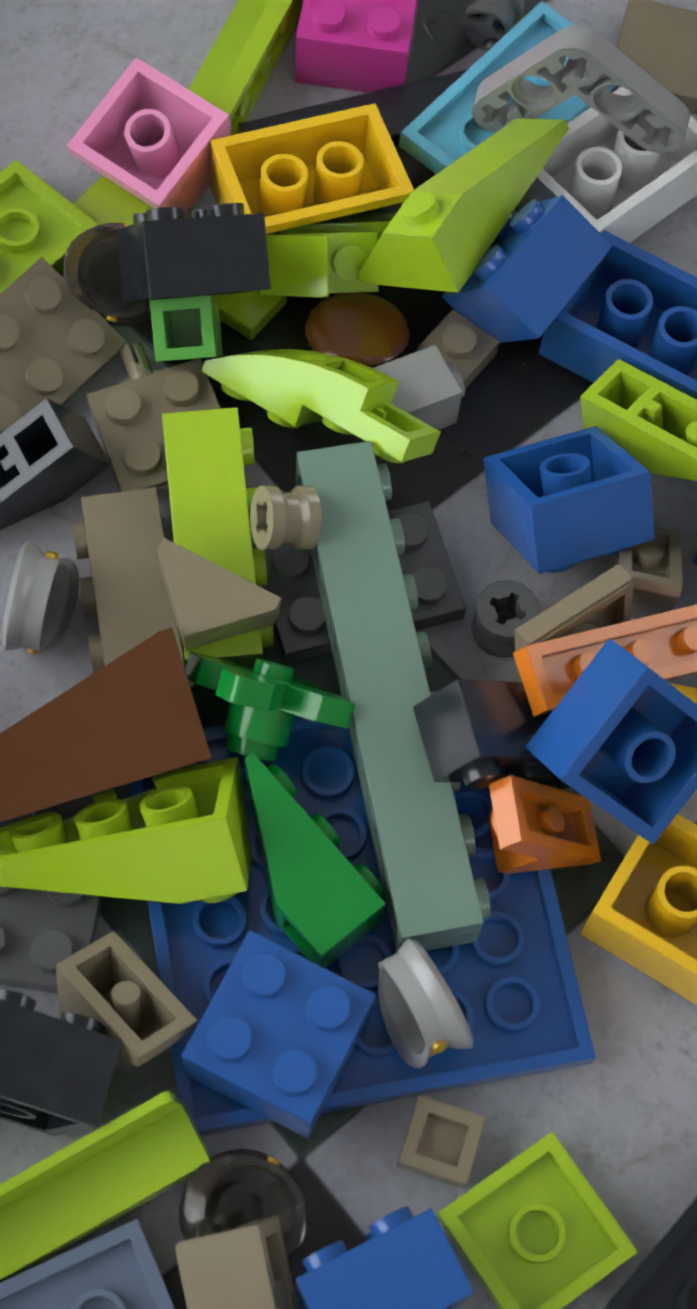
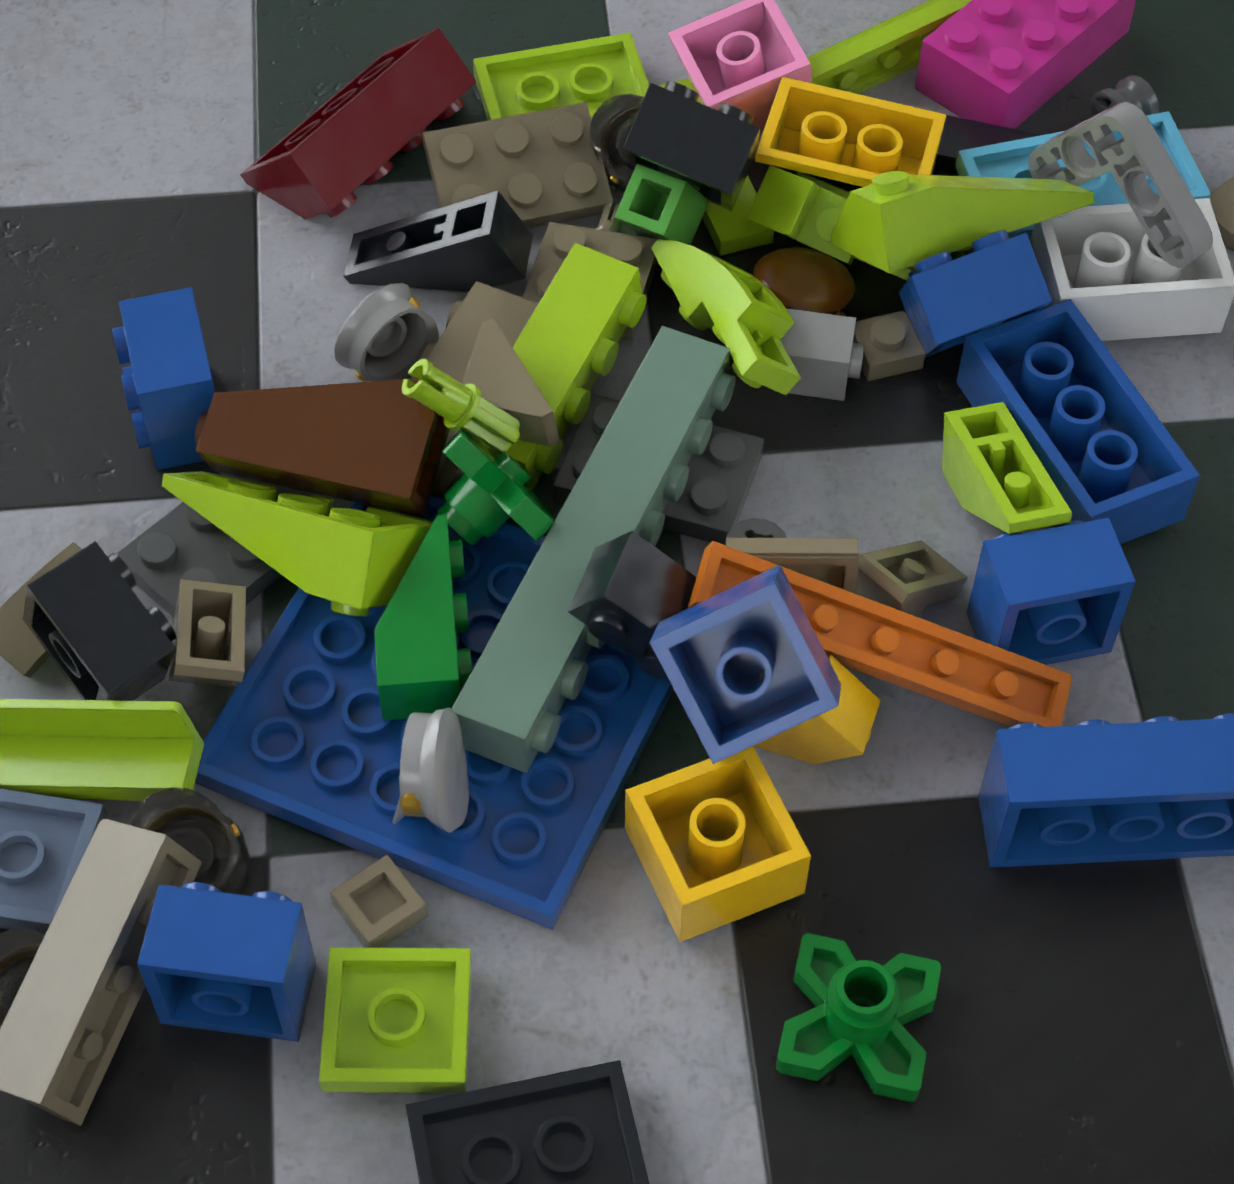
camera: 40 degrees right, 10 degrees down
(203, 644) = (461, 406): none -> lime axle
(278, 1034) = (305, 730): blue brick -> none
(286, 517) = (611, 364): dark tan wheel -> none
(540, 827) = (637, 707): orange slope -> none
(569, 499) = (871, 487): blue brick -> none

